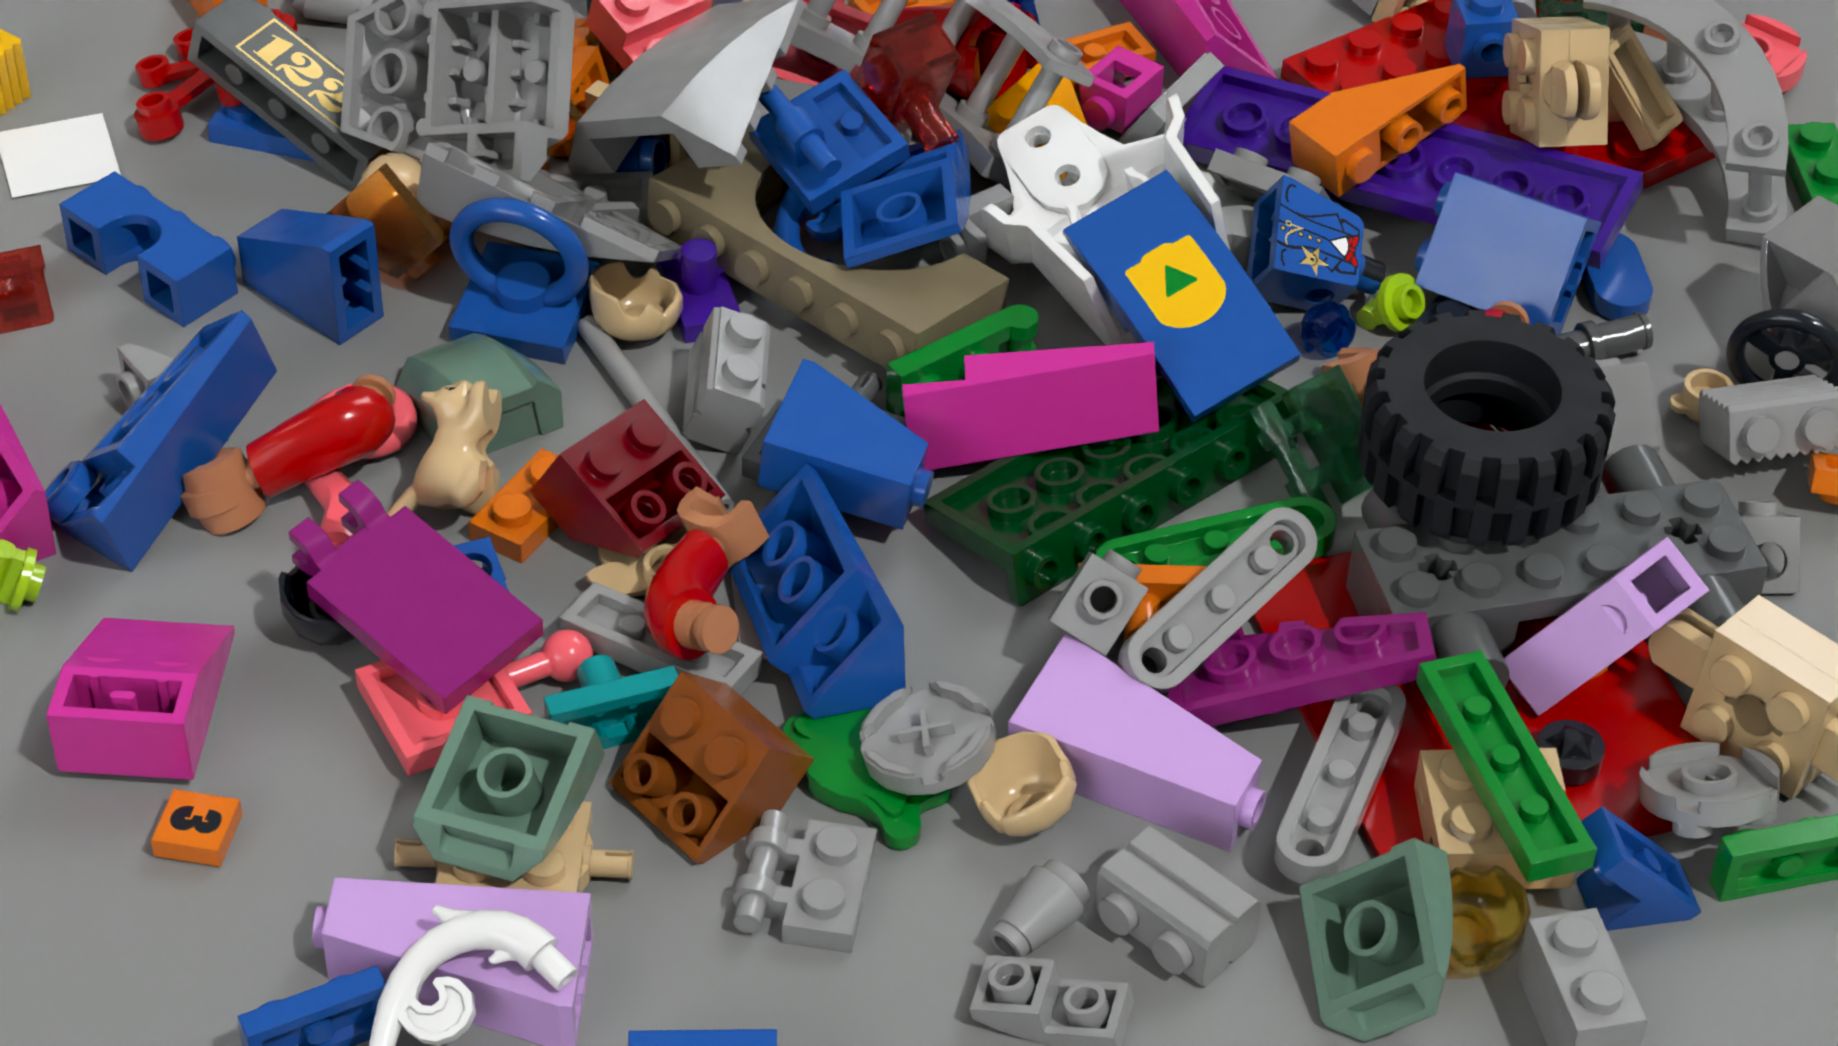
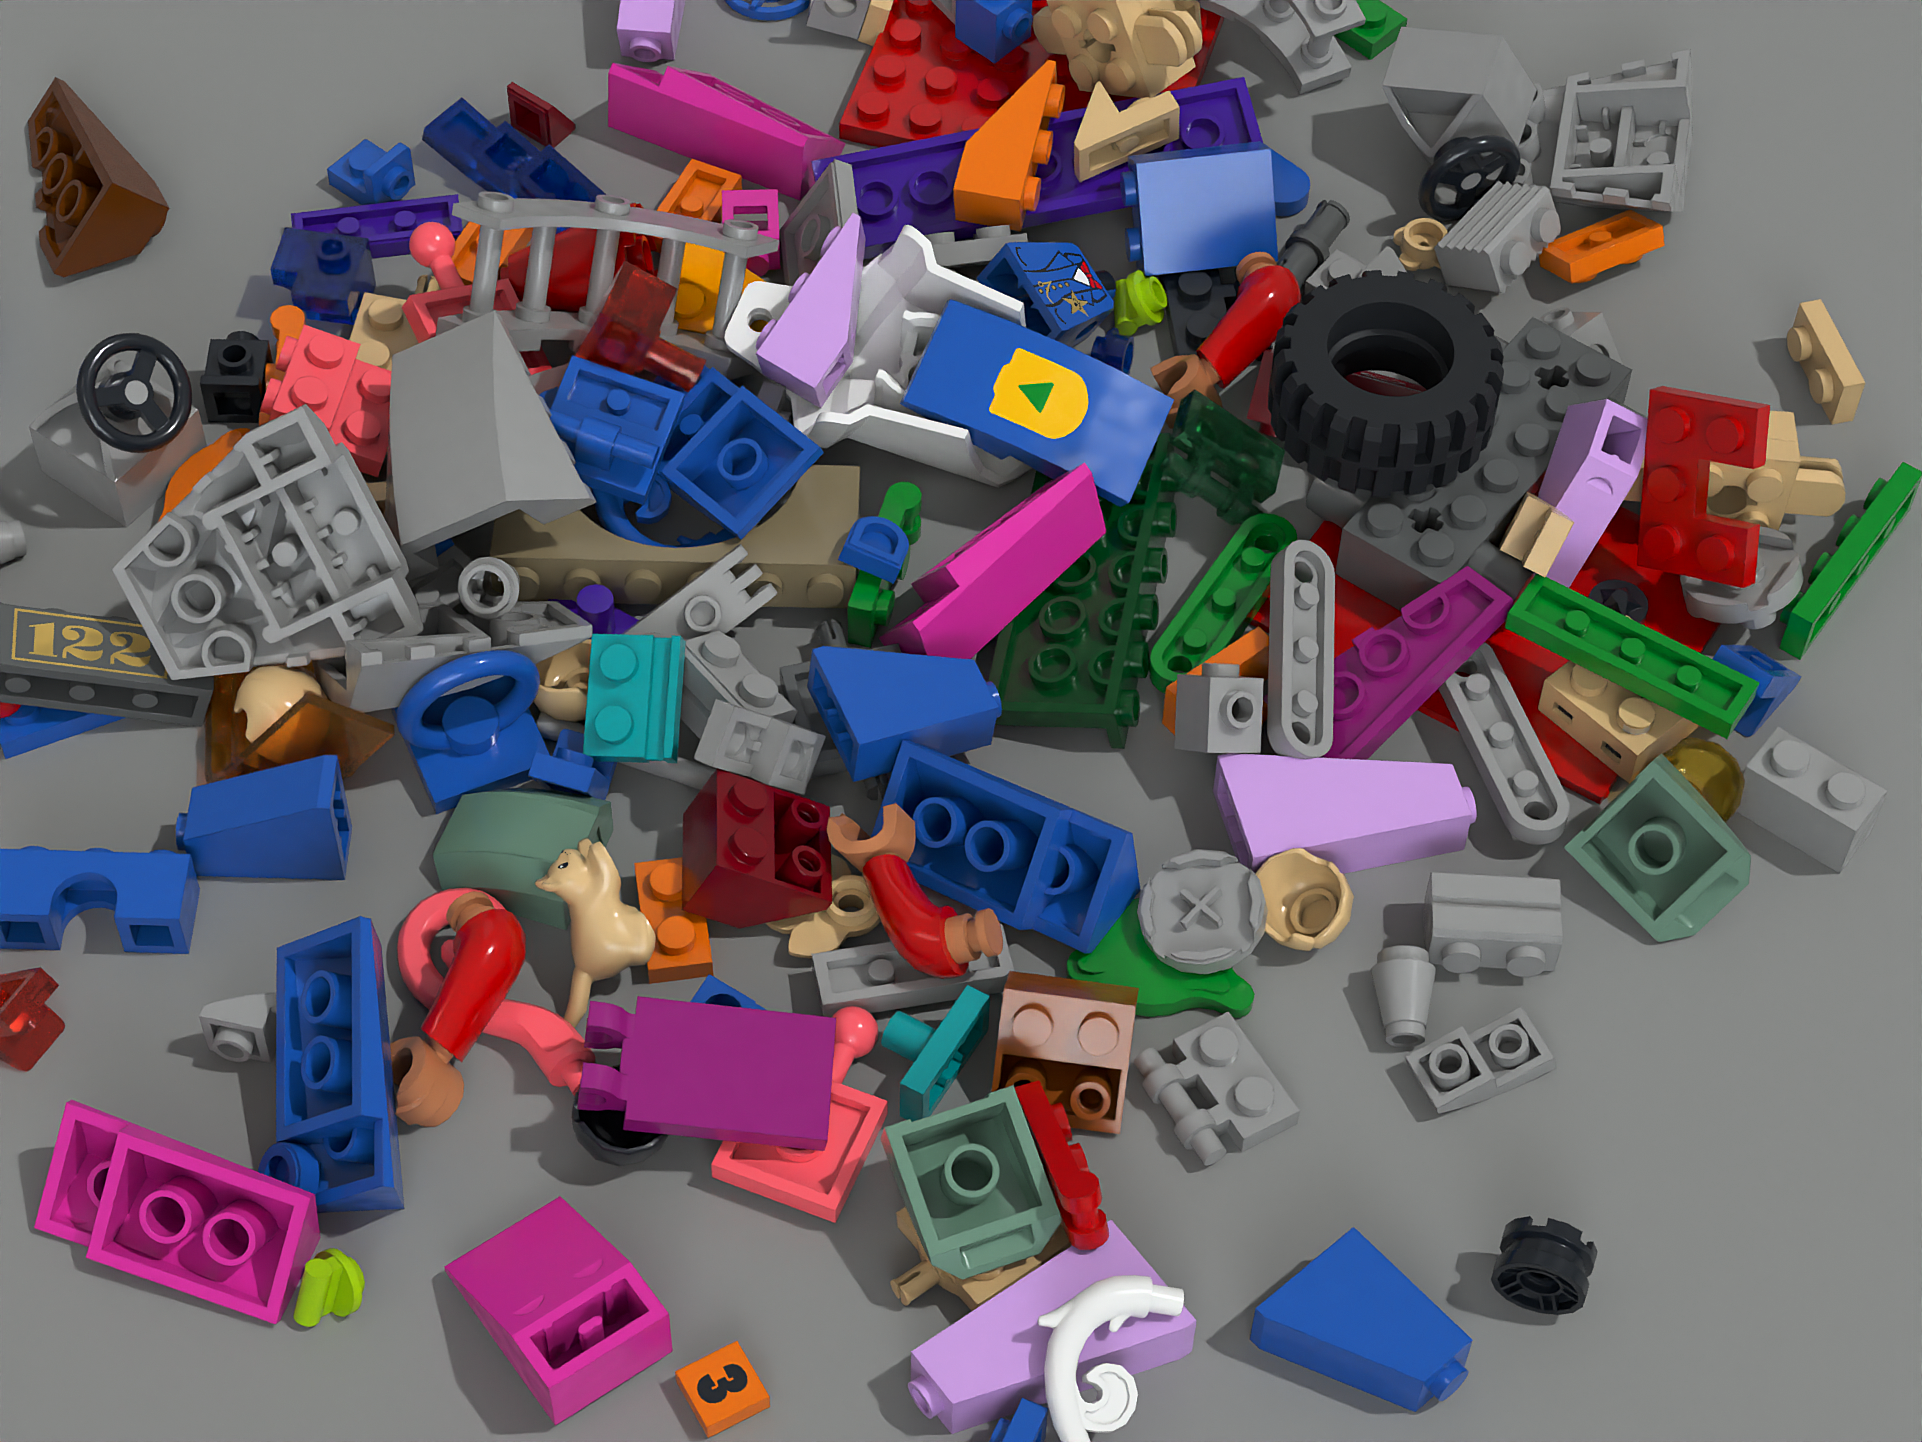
camera: 40 degrees left, 10 degrees up
(572, 364) = (571, 769): none -> blue bracket
(593, 827) = (1066, 1168): none -> red plate
(619, 189) = (477, 592): none -> light grey cone
(647, 327) = (634, 698): none -> teal plate
(698, 409) = (759, 747): none -> light grey slope
(779, 297) = (708, 602): none -> light grey hinge
(945, 329) = (876, 547): none -> blue tile
(1079, 148) = (817, 331): none -> lavender slope
(1470, 148) = (1111, 136): none -> tan slope
(1514, 622) = (1536, 534): none -> tan slope
(1723, 610) = (1681, 440): none -> red plate

